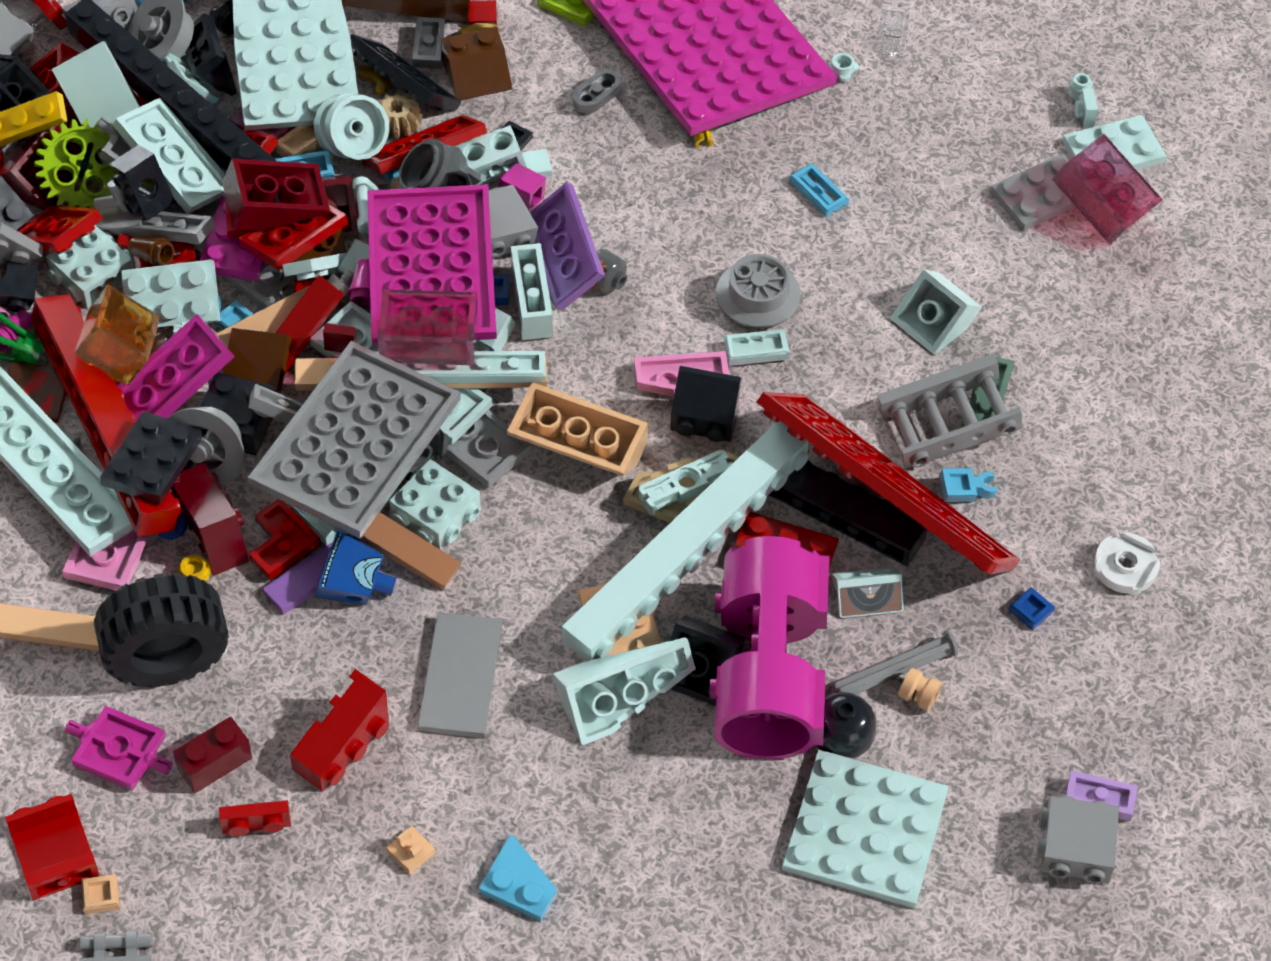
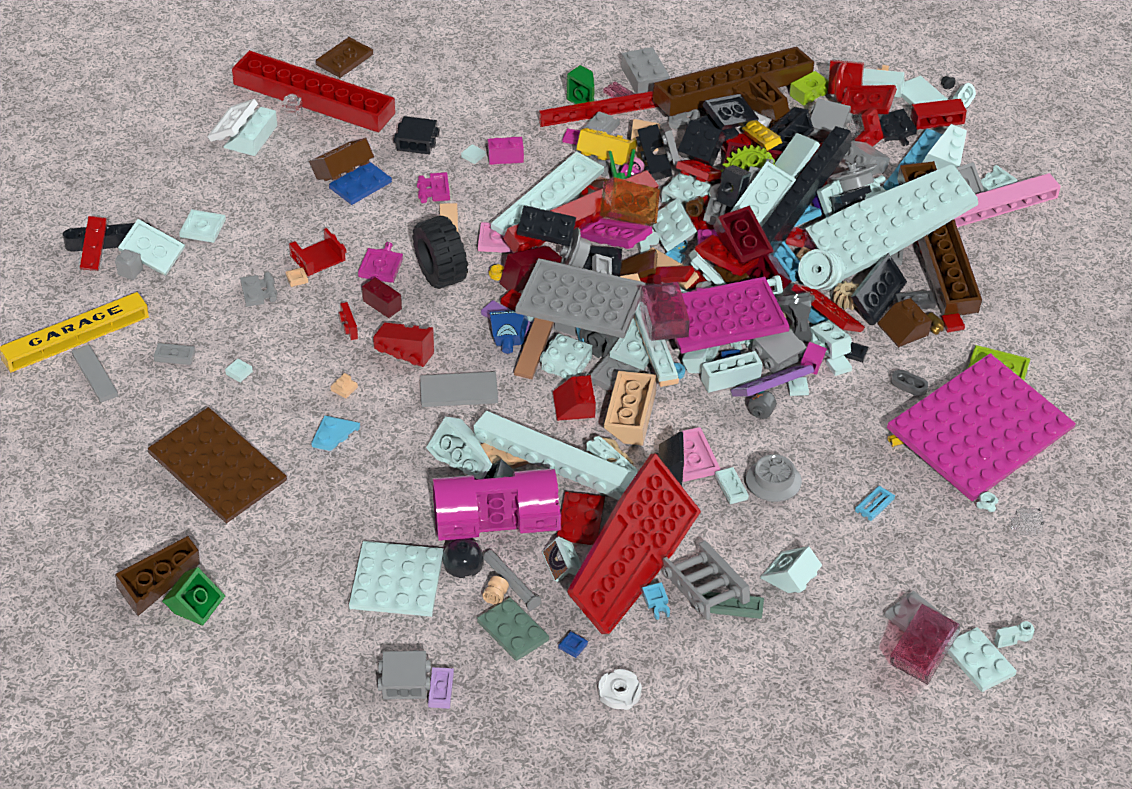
camera: 80 degrees right, 10 degrees down
(533, 510) = (575, 399): none -> red slope
(992, 682) = (513, 629): none -> sand green plate

